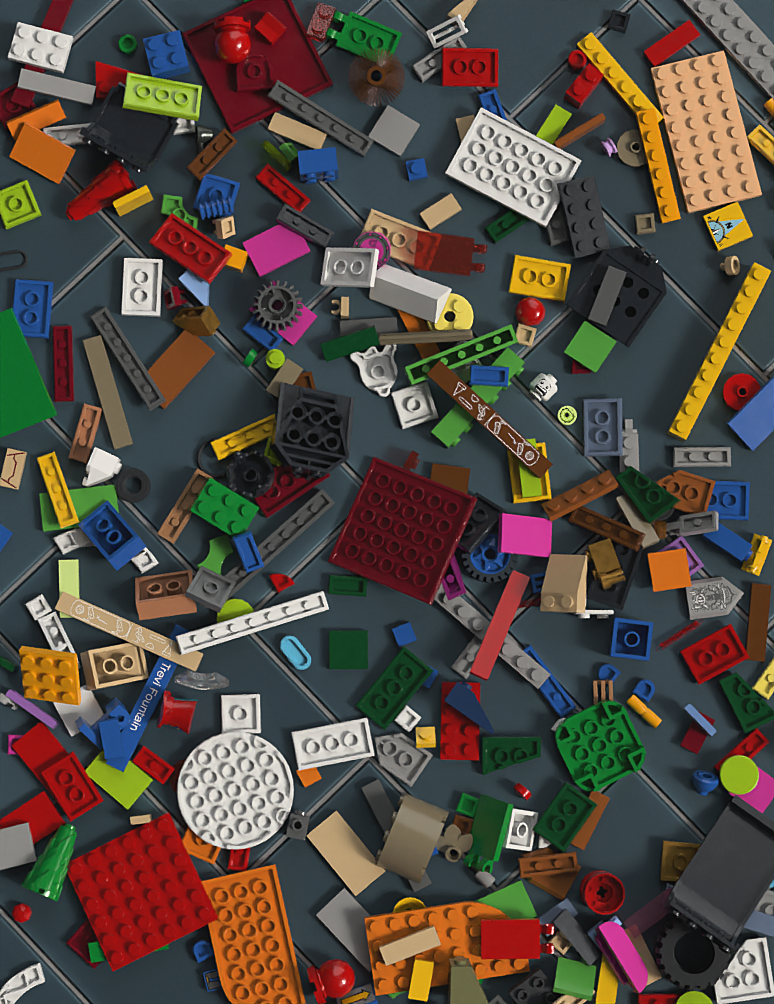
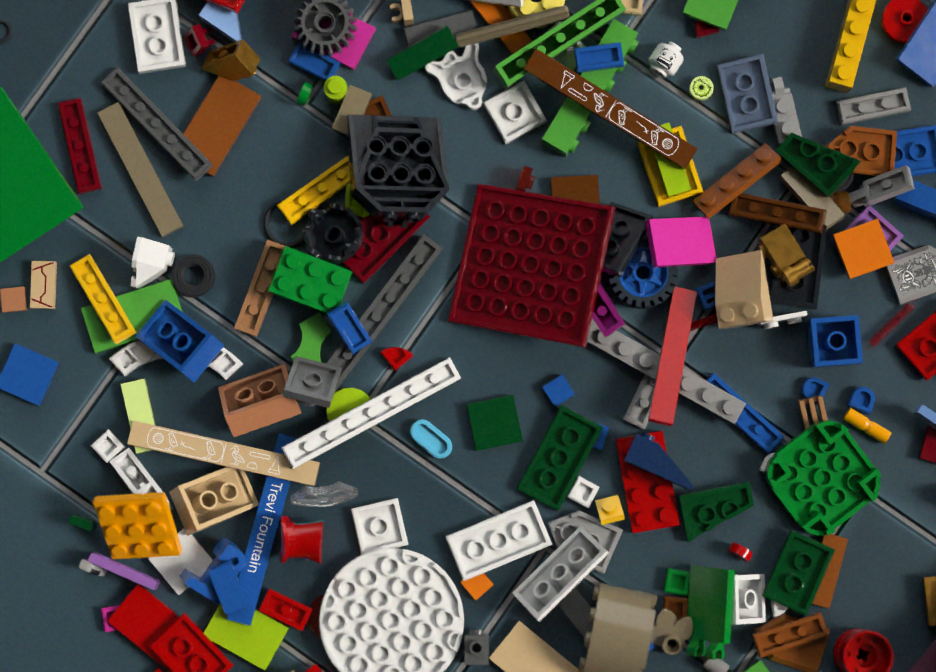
camera: 10 degrees left, 0 degrees up
(33, 307) = (30, 84): blue tile -> none
(85, 433) = (123, 224): nougat tile -> none
(347, 585) = (478, 345): dark green tile -> none
(375, 779) = (560, 573): none -> white slope

